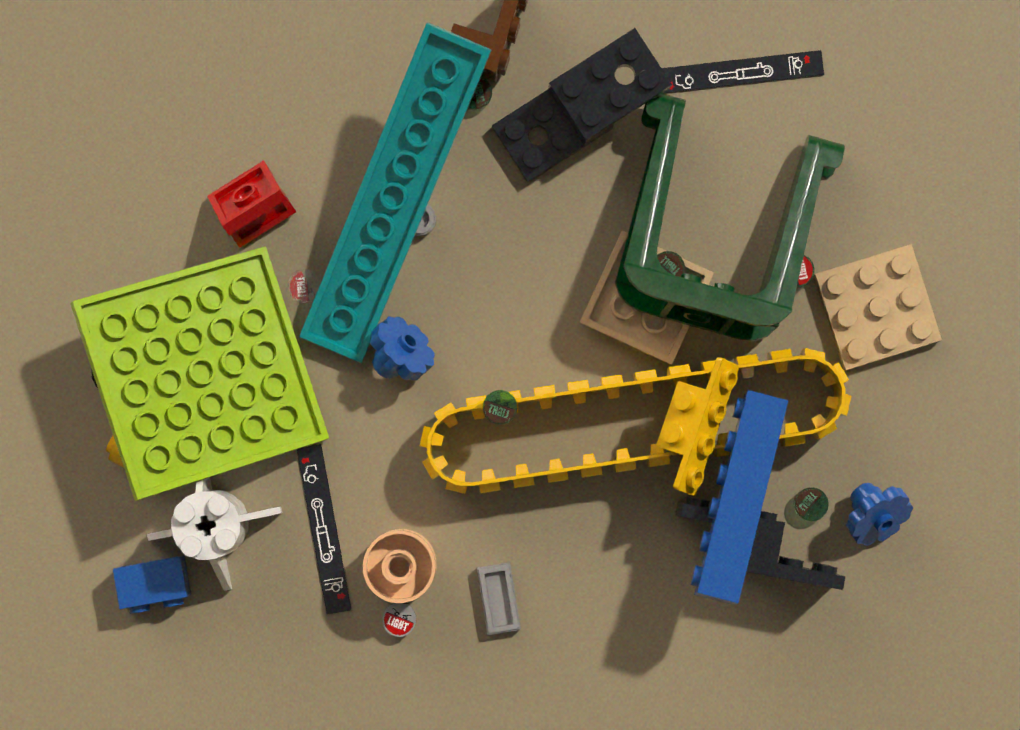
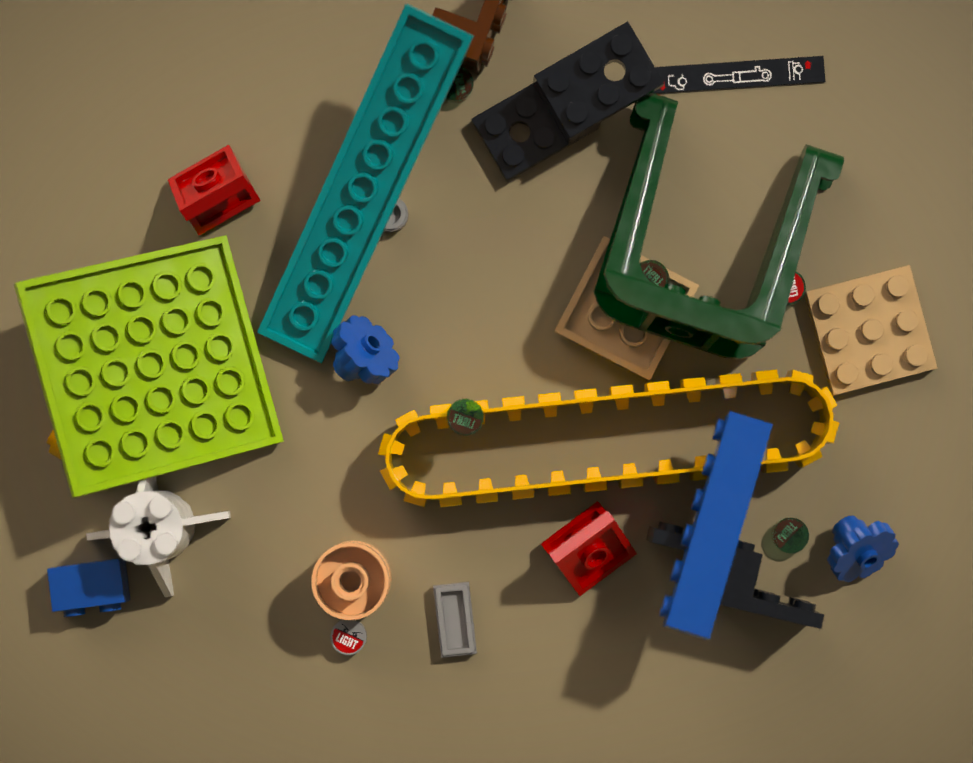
camera: 10 degrees right, 0 degrees up
(304, 285) = (264, 278): clear tile -> none
(324, 529) = (273, 537): black sticker -> none
(622, 525) = (589, 548): none -> red bracket
(694, 423) = (671, 443): yellow bracket -> none

